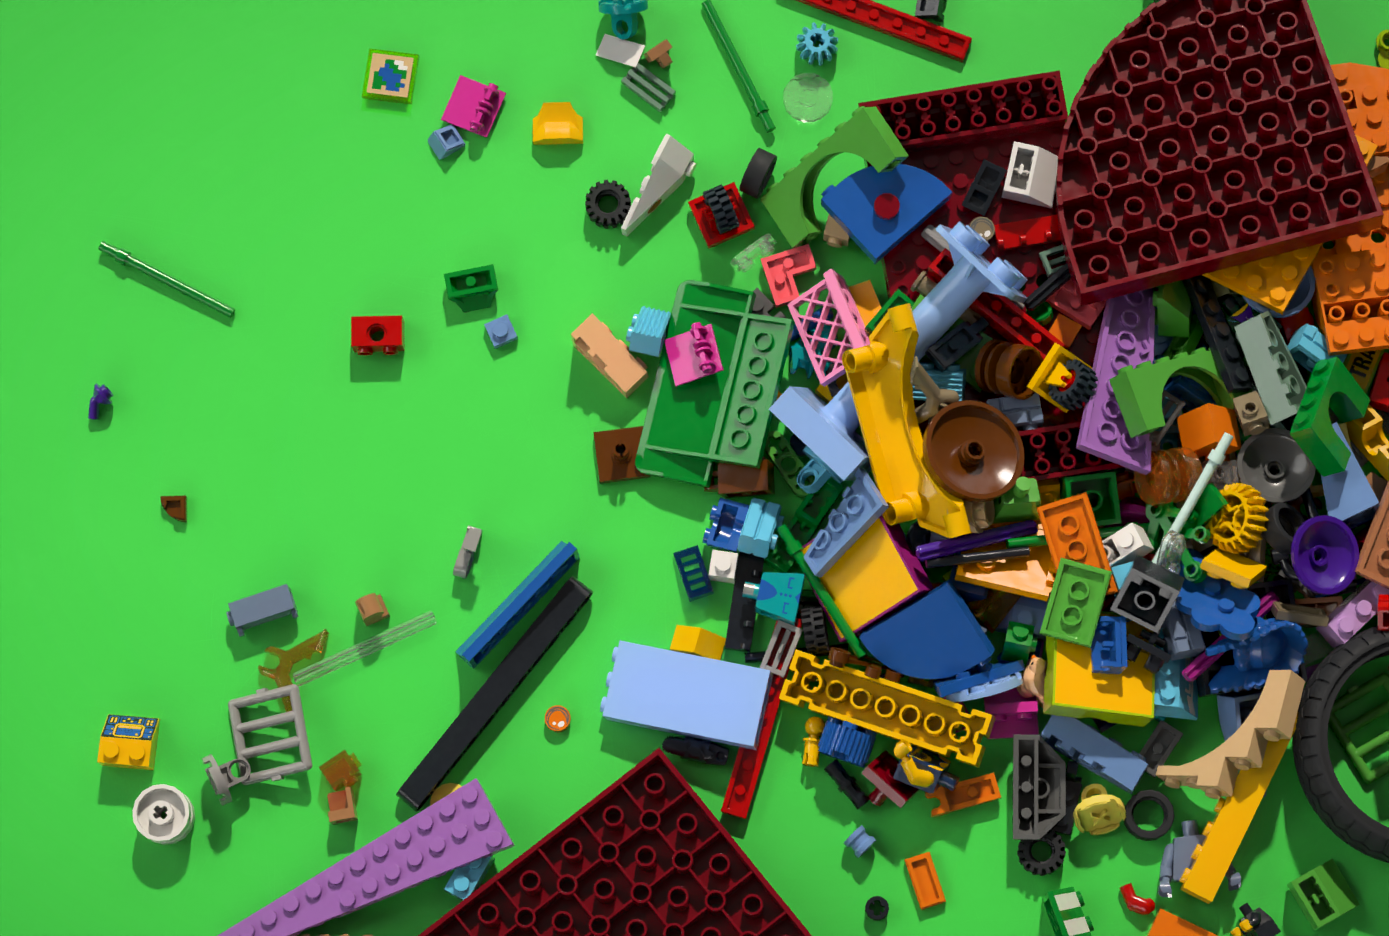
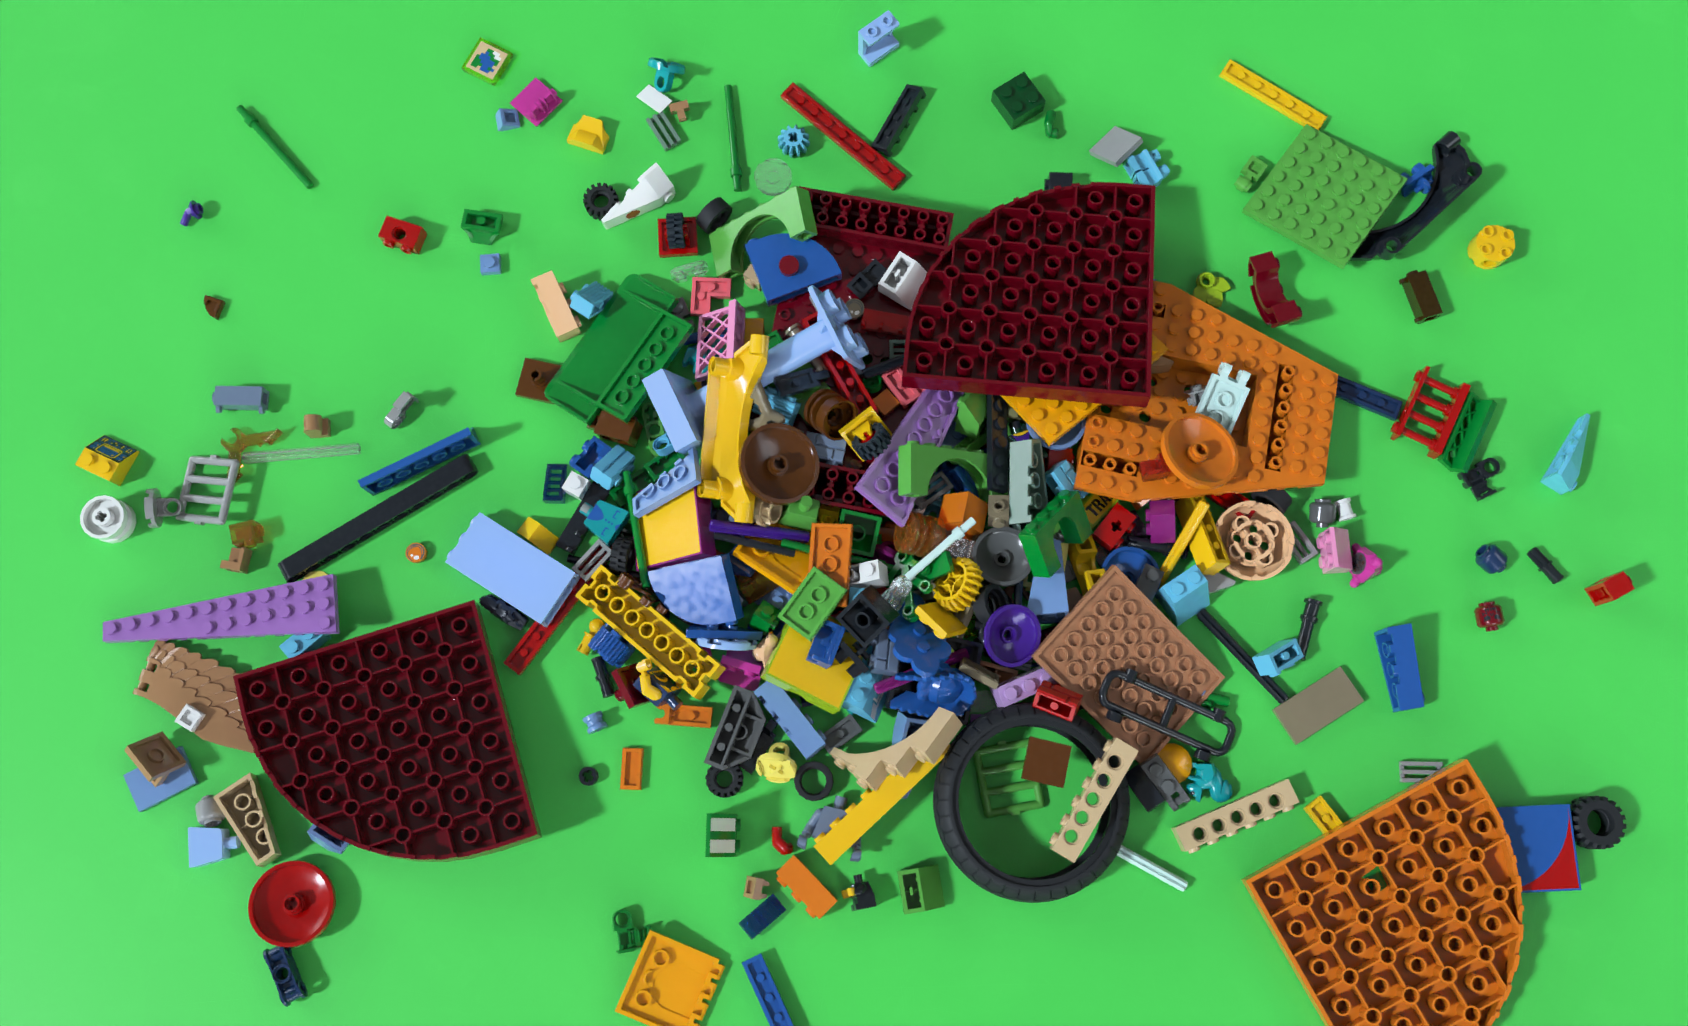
camera: 15 degrees right, 0 degrees up
(693, 354) = (615, 326): dark pink hinge -> none

